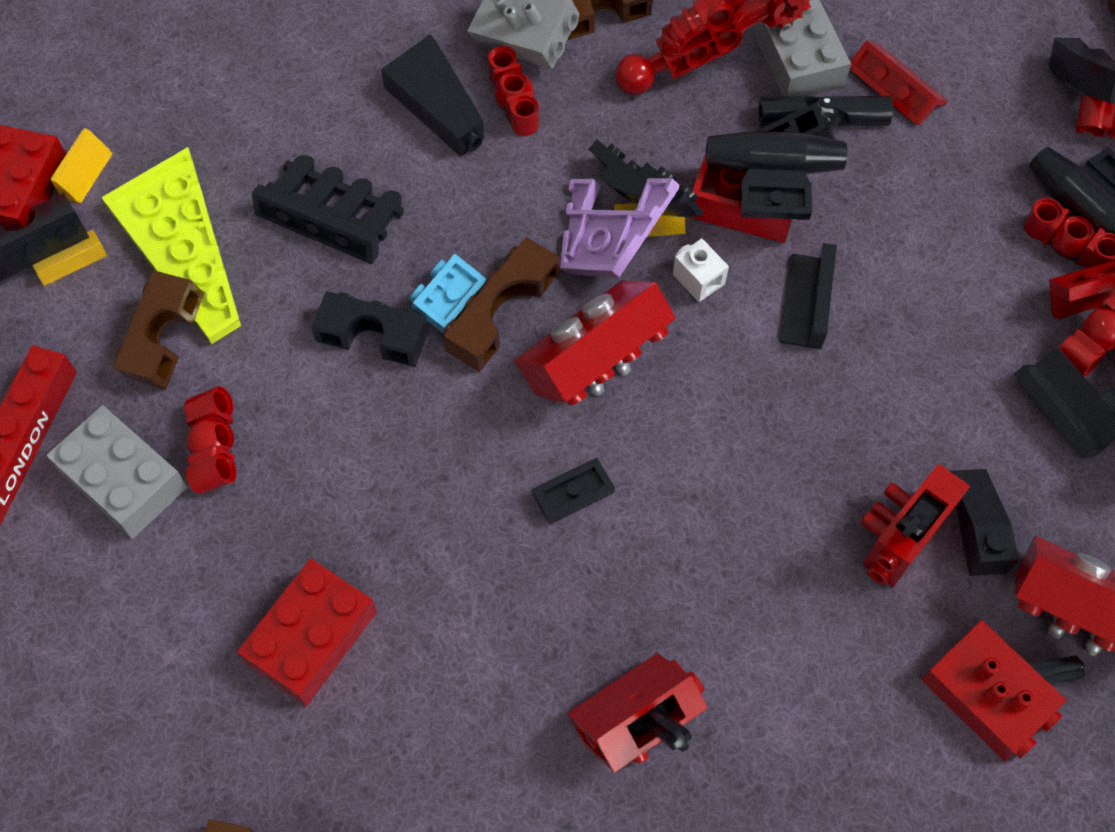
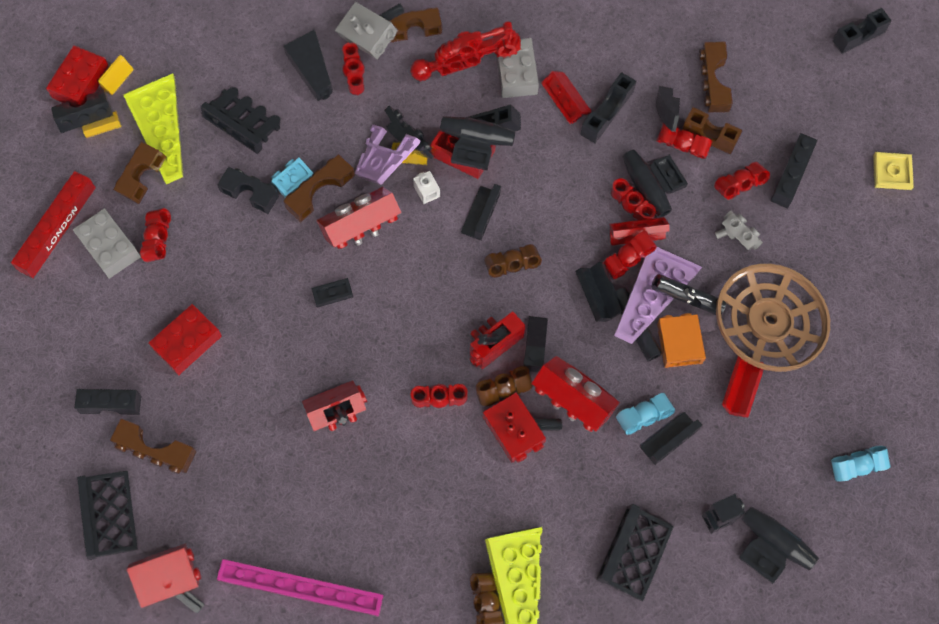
camera: 10 degrees right, 5 degrees up
(190, 782) = (117, 400): none -> black arch
(846, 644) = (448, 398): none -> red piece
(851, 112) = (533, 109): black piece -> none
(894, 374) = (512, 260): none -> reddish brown piece
(950, 611) = (504, 386): none -> reddish brown piece
(979, 86) = (616, 98): none -> black arch

